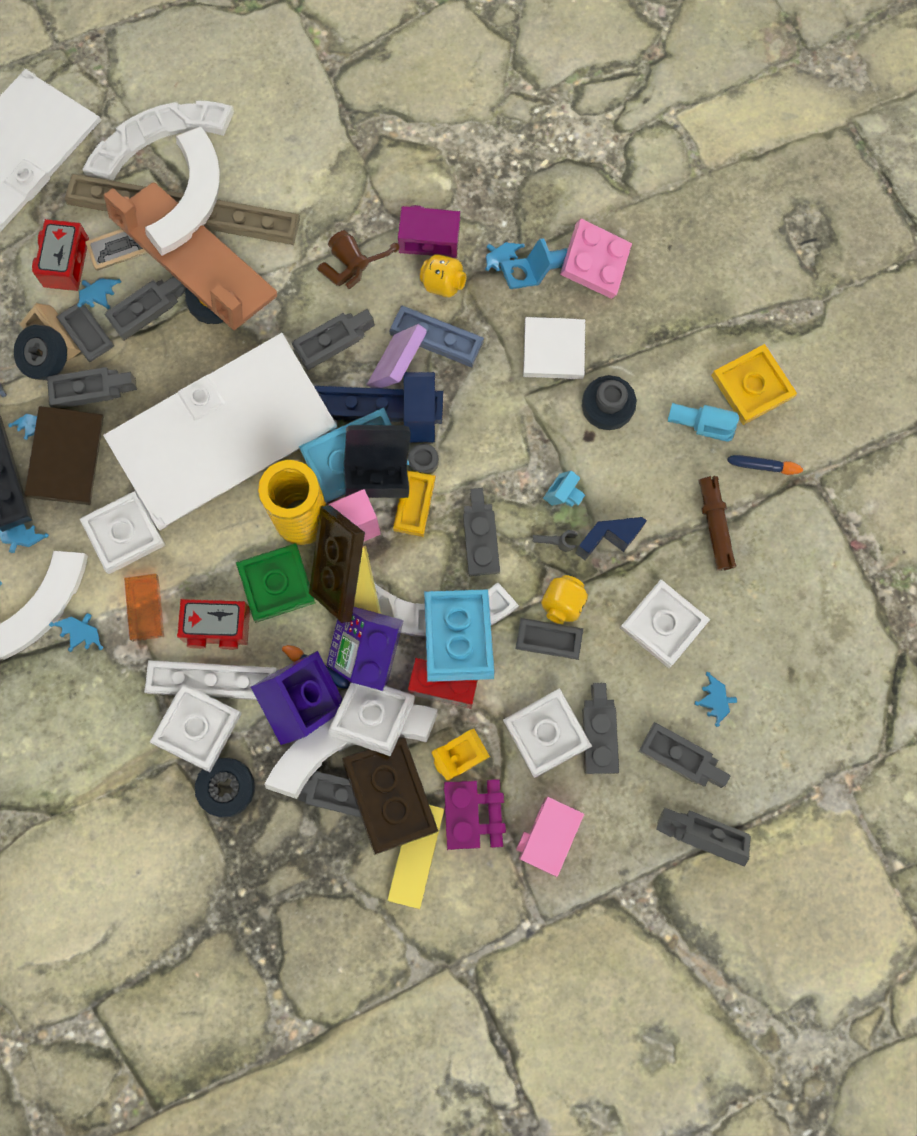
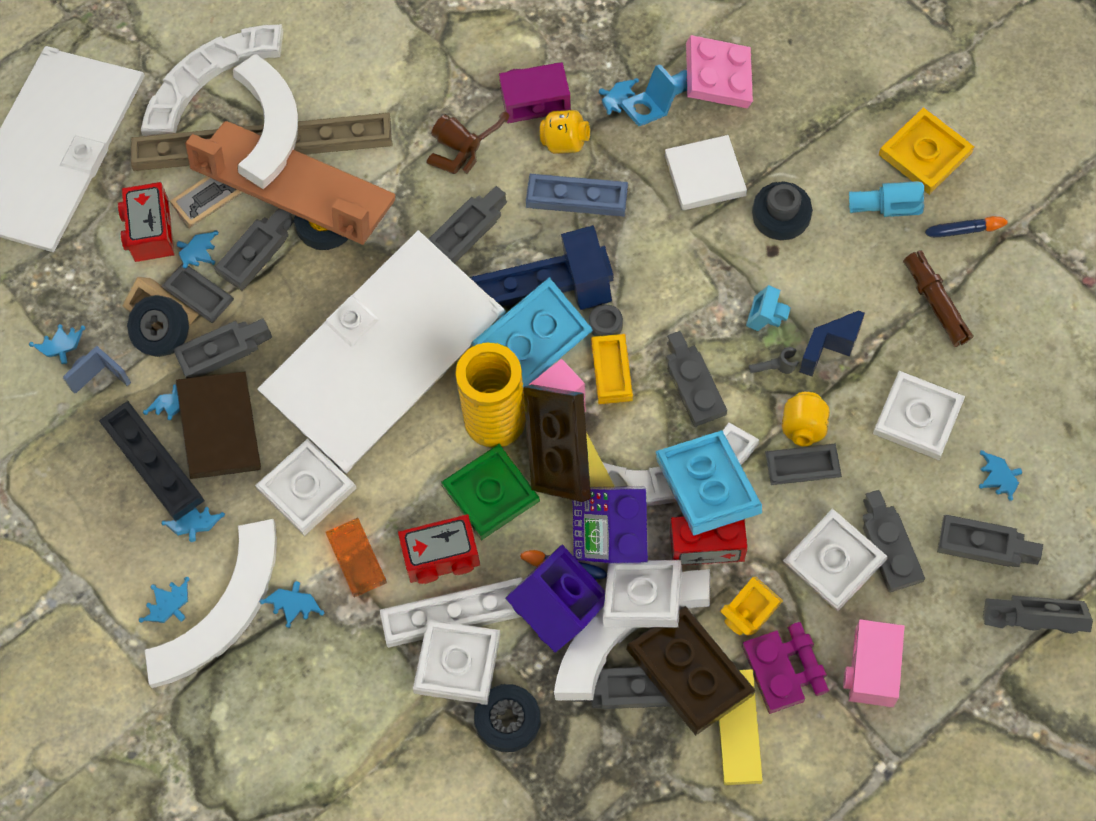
camera: 10 degrees left, 10 degrees down
(377, 460) = (560, 328): black bracket -> none
(397, 357) = (546, 223): lavender tile -> none

